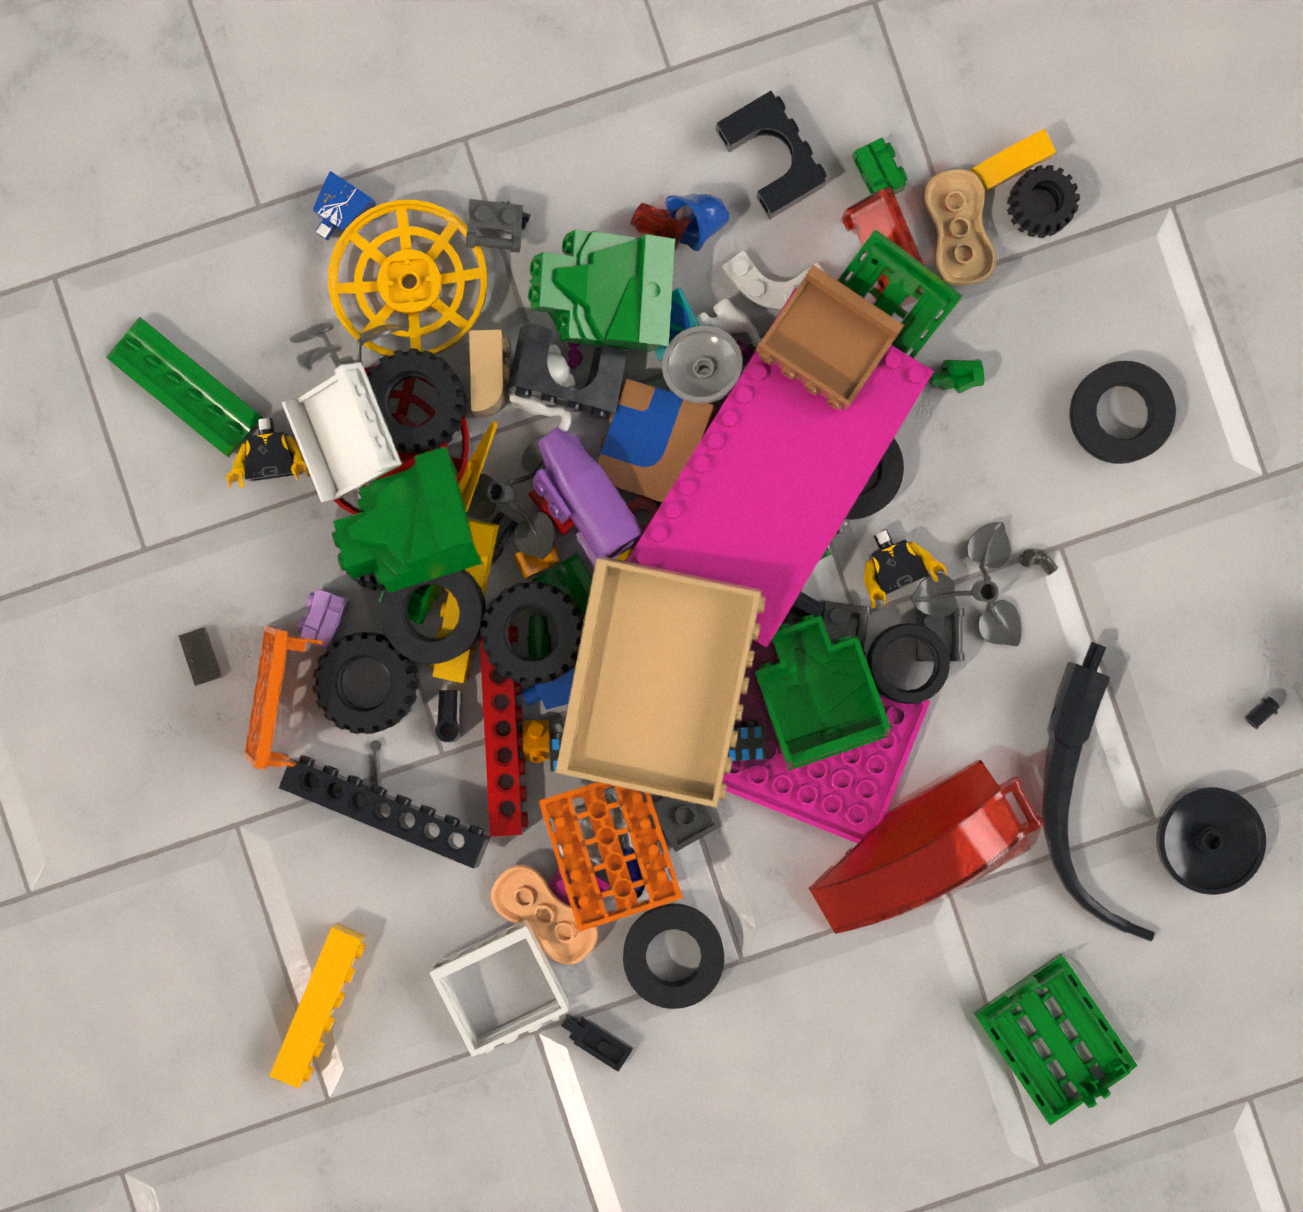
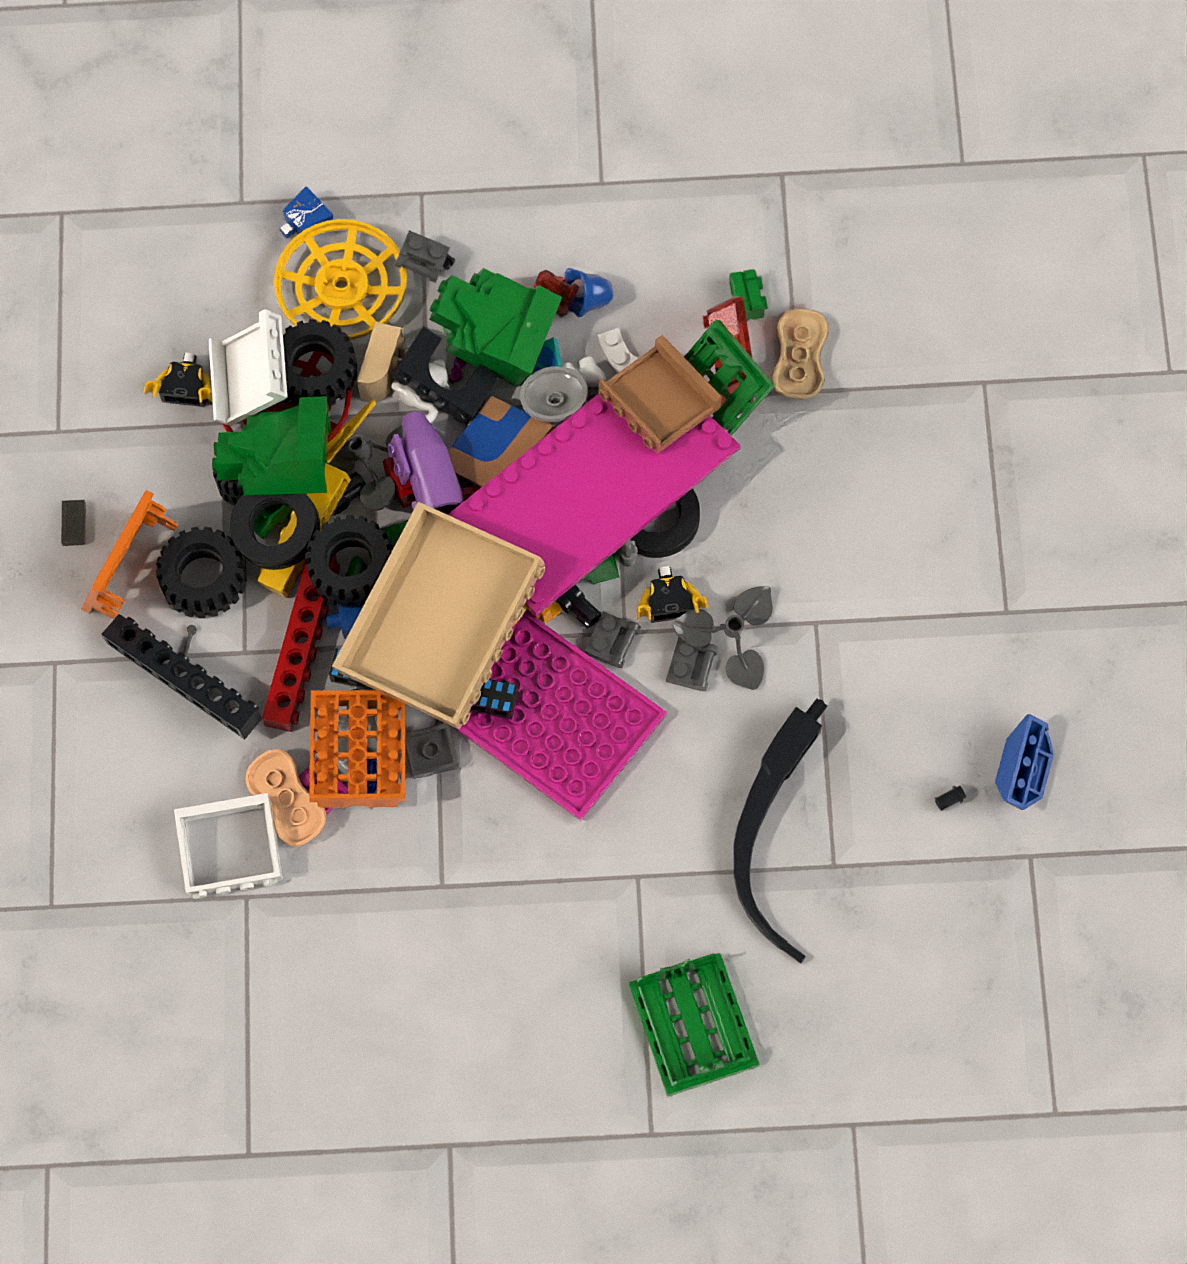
camera: 20 degrees right, 20 degrees down
(184, 387) = (135, 317): green plate -> none
(312, 357) = (257, 300): dark grey plant -> none
(317, 1006) = (71, 820): yellow brick -> none
(323, 617) = (187, 512): lavender brick -> none
(449, 712) = (261, 618): black piece -> none
(531, 565) = (381, 517): light orange bracket -> none
(536, 740) = (323, 658): light orange bracket -> none
(597, 1041) = (296, 916): black hinge -> none
(661, 992) = (391, 893): black tyre -> none
(768, 118) = (665, 234): black arch -> none
(819, 694) = (571, 676): green panel -> none
(927, 850) = (627, 832): clear red windscreen -> none
(940, 658) = (660, 644): black tyre -> none
(959, 375) = (765, 464): green rock -> none
(1015, 160) = (859, 315): yellow slope -> none
(1038, 557) = (794, 624): clear smoke arm -> none
(1058, 186) = (878, 334): black tyre -> none
(1157, 398) = (905, 499): black tyre -> none
(1211, 840) = (874, 887): black dish -> none

